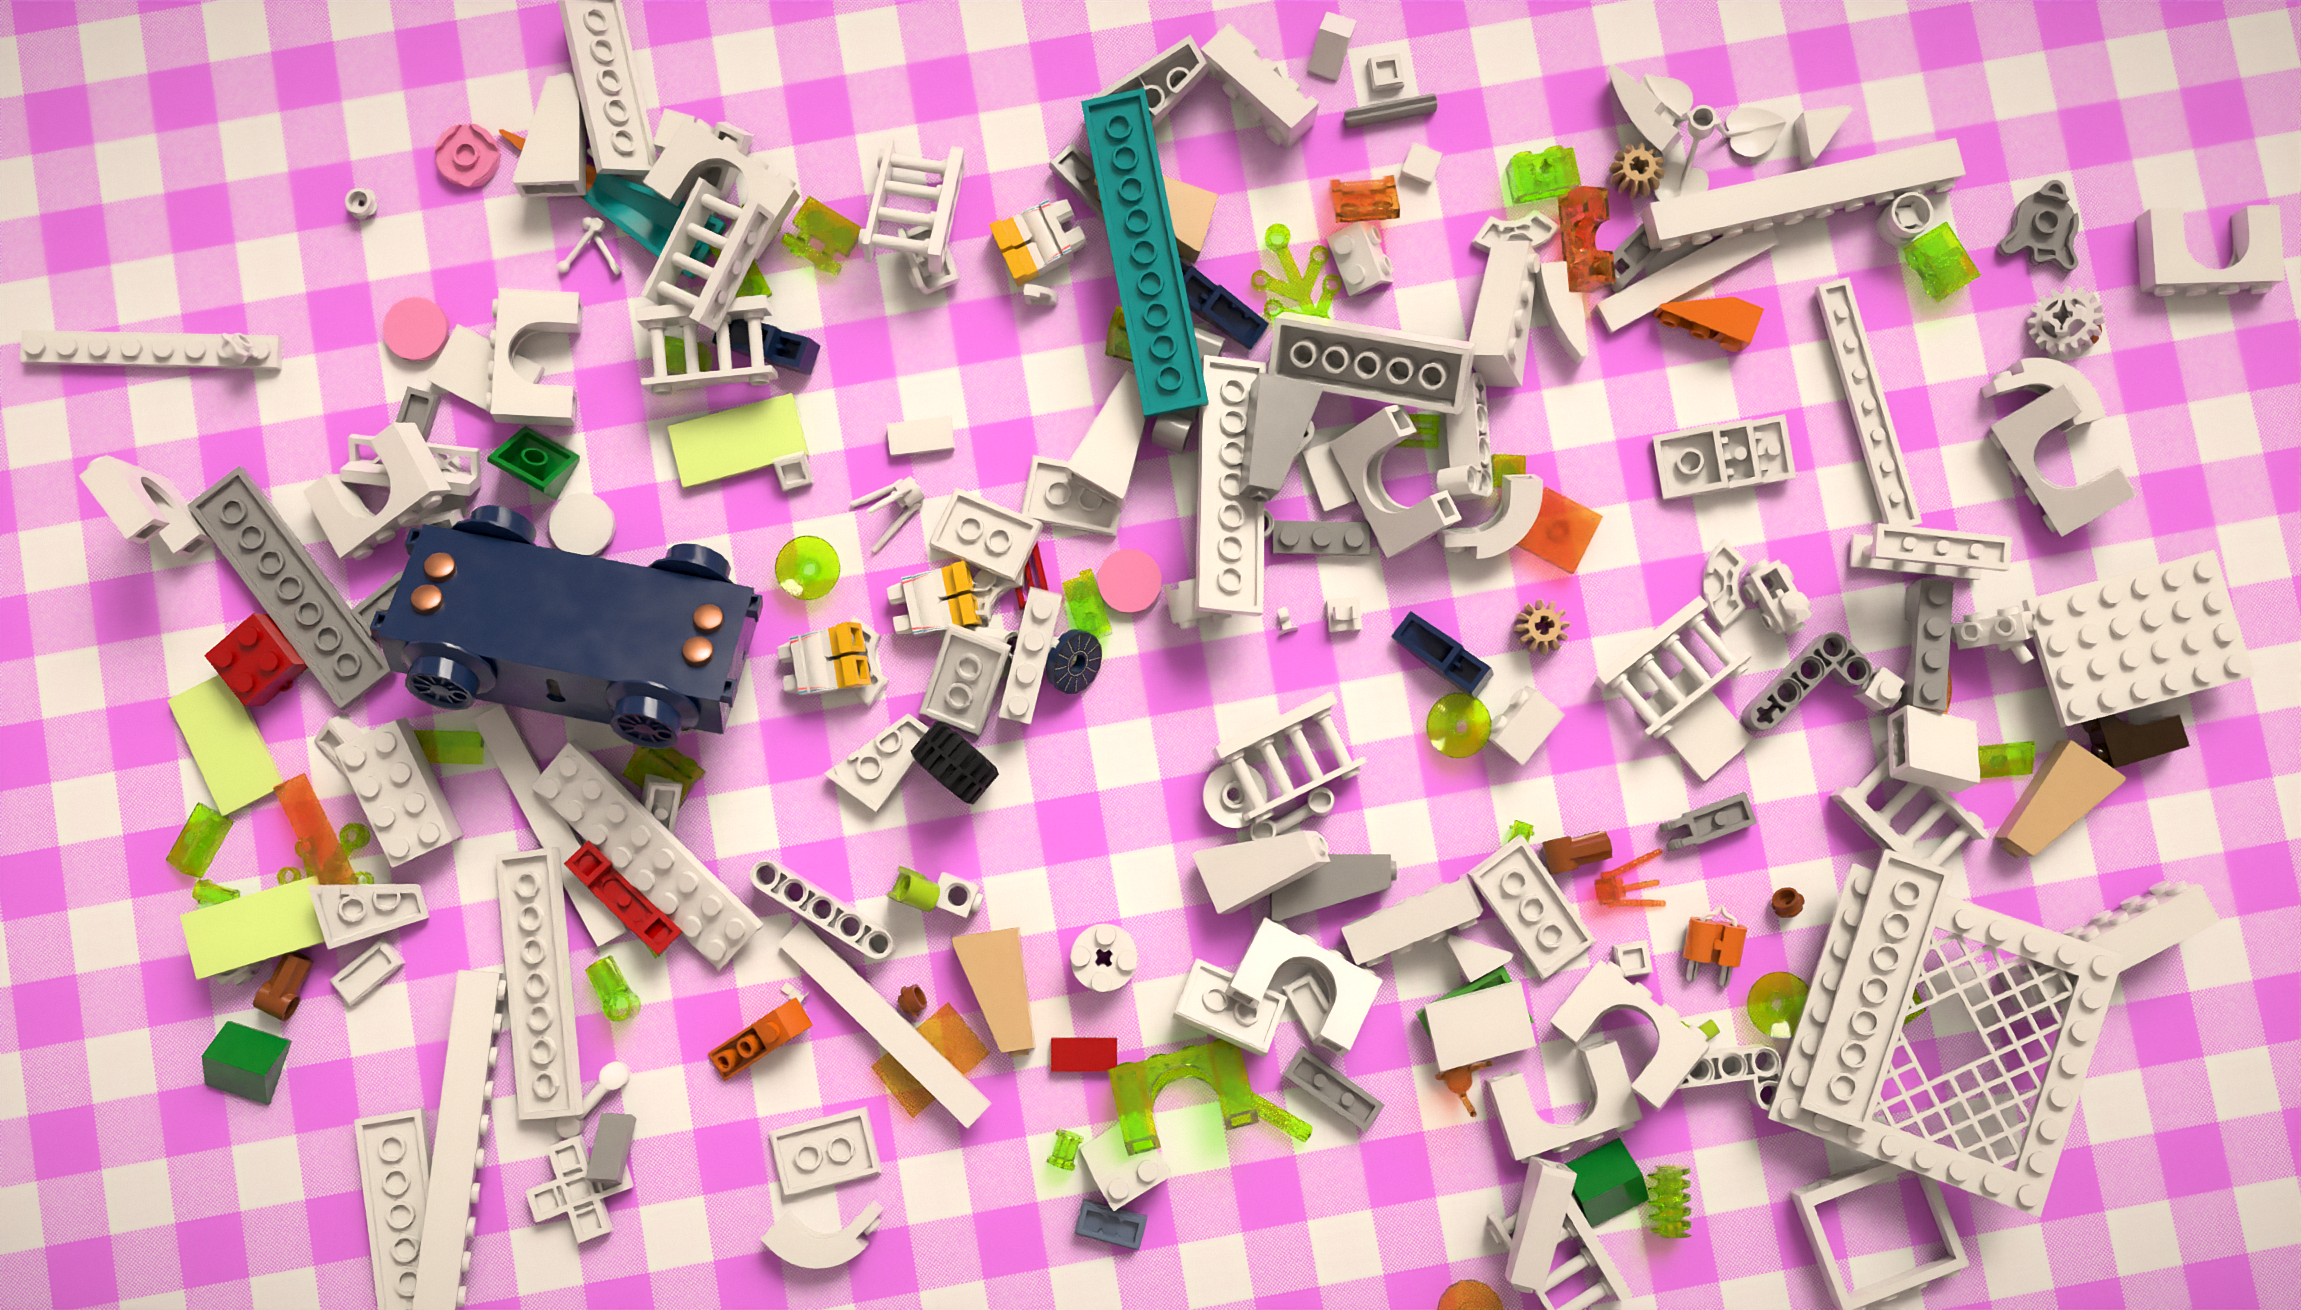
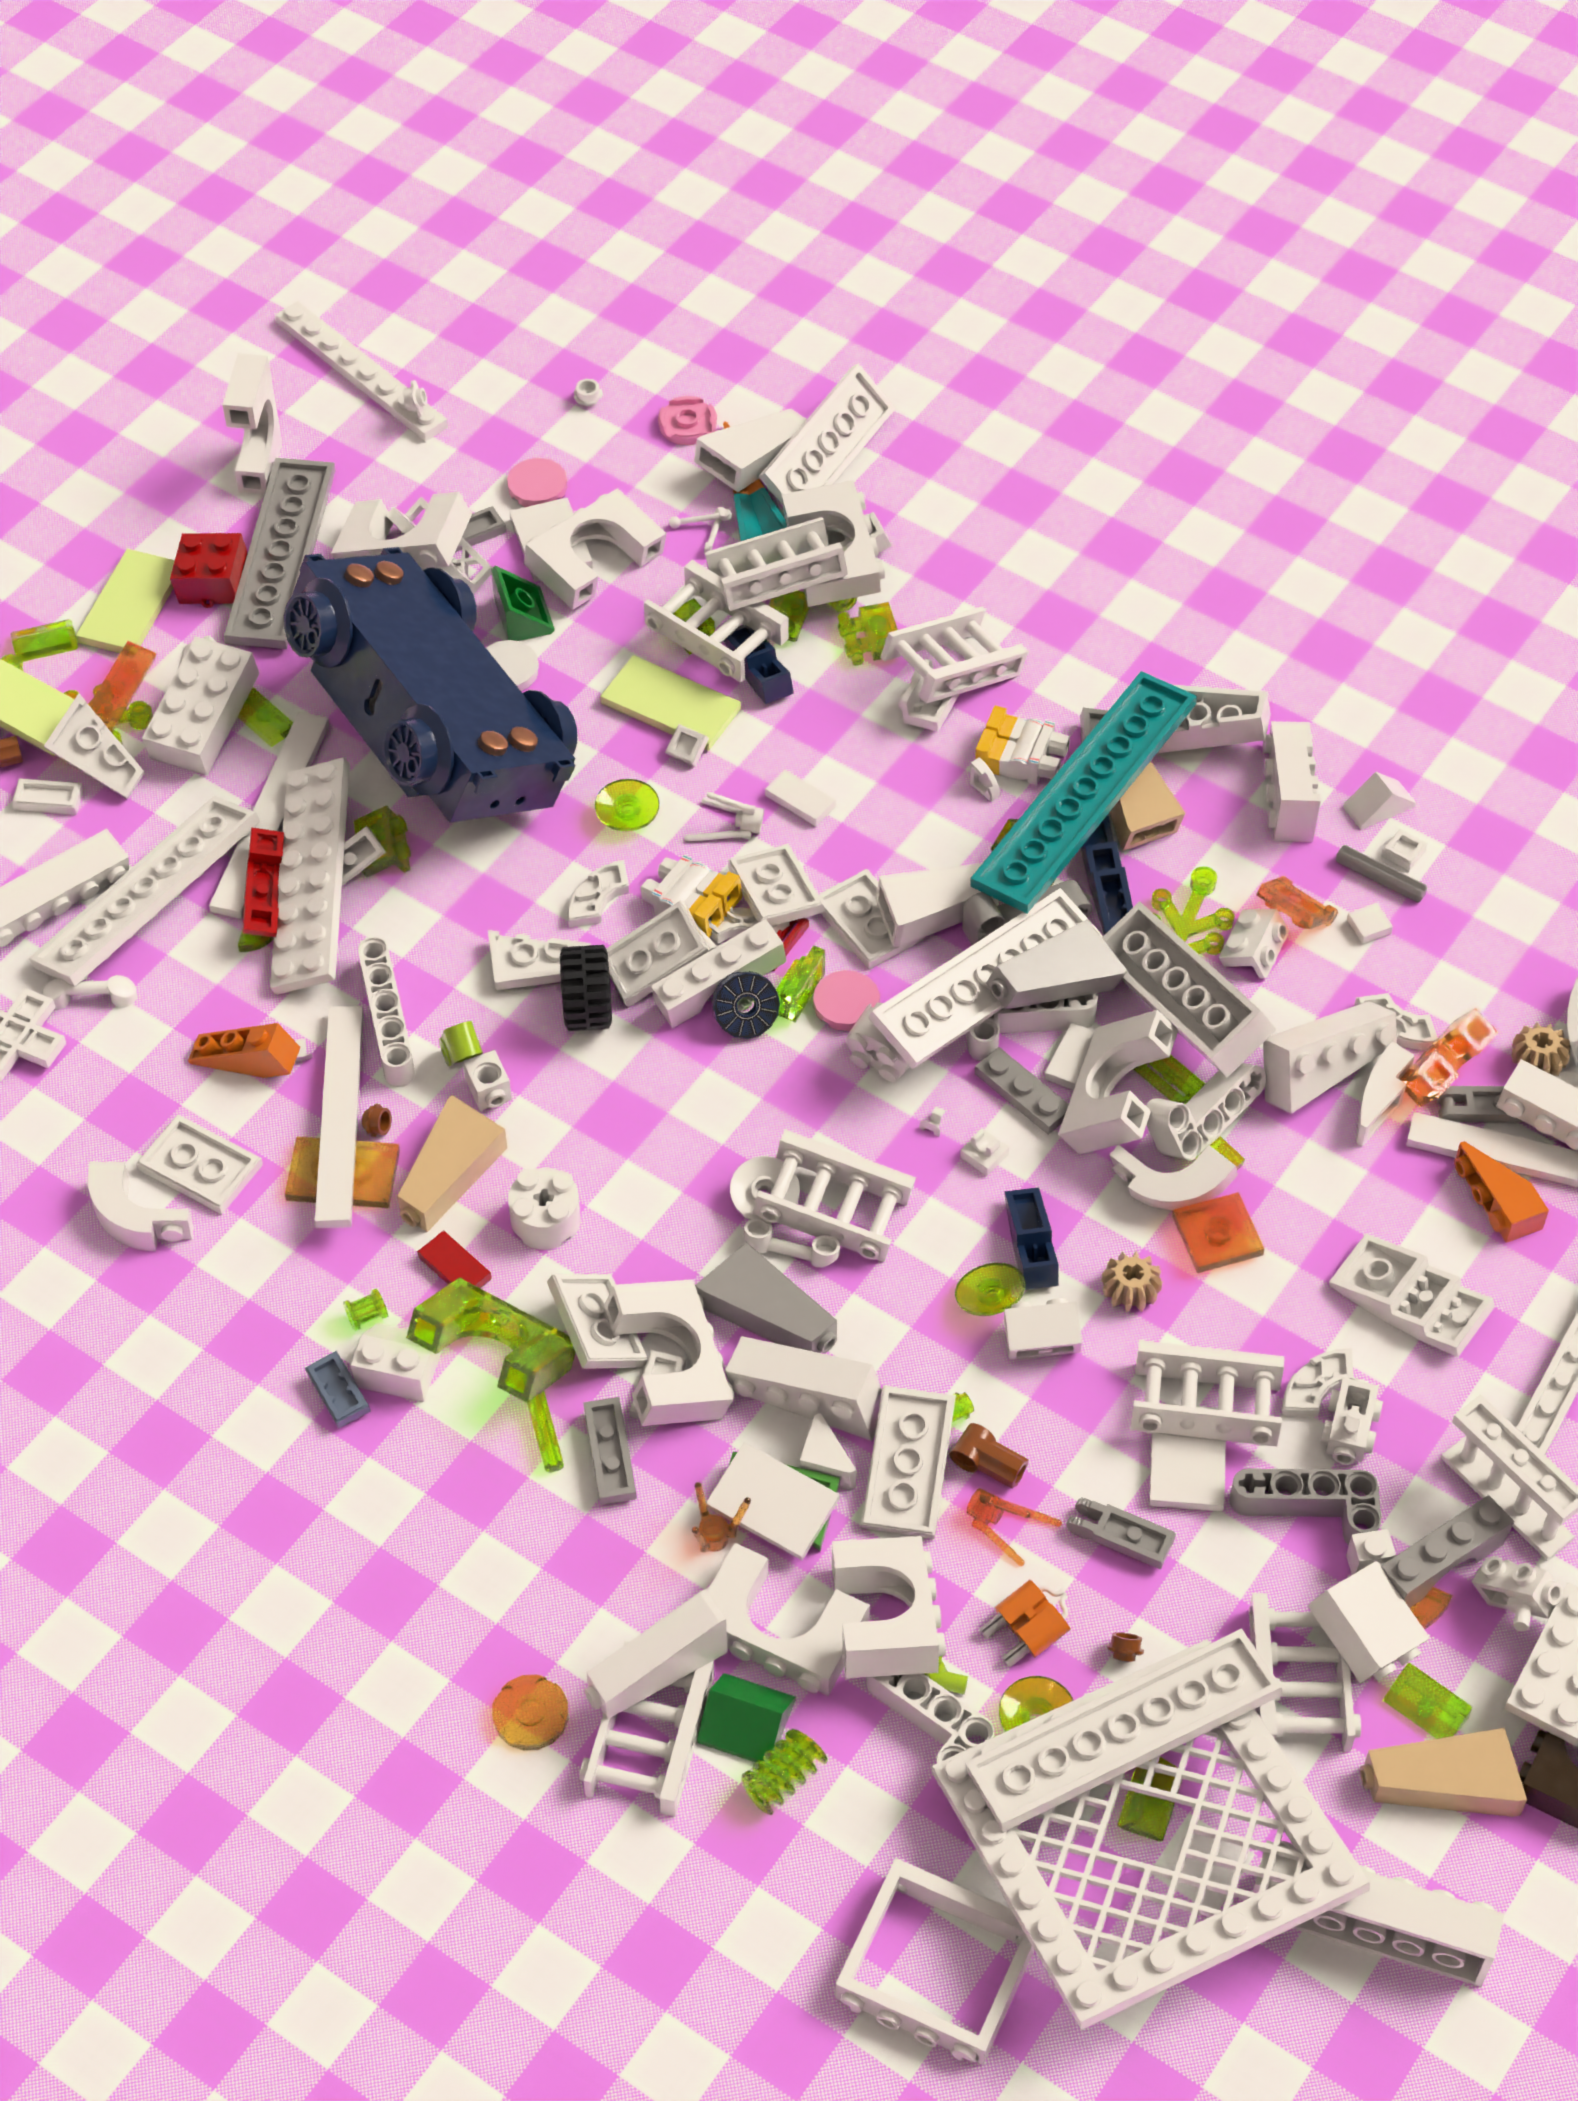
camera: 45 degrees right, 30 degrees down
(610, 986) = (186, 937): clear neon green piece -> none
(611, 1148) = (64, 1024): light grey tile -> none
(814, 661) = (571, 861): hips -> none
(1256, 868) = (726, 1235): white slope -> none
(1530, 186) = (1453, 992): clear neon green brick -> none
(1633, 958) = (952, 1577): white tile -> none

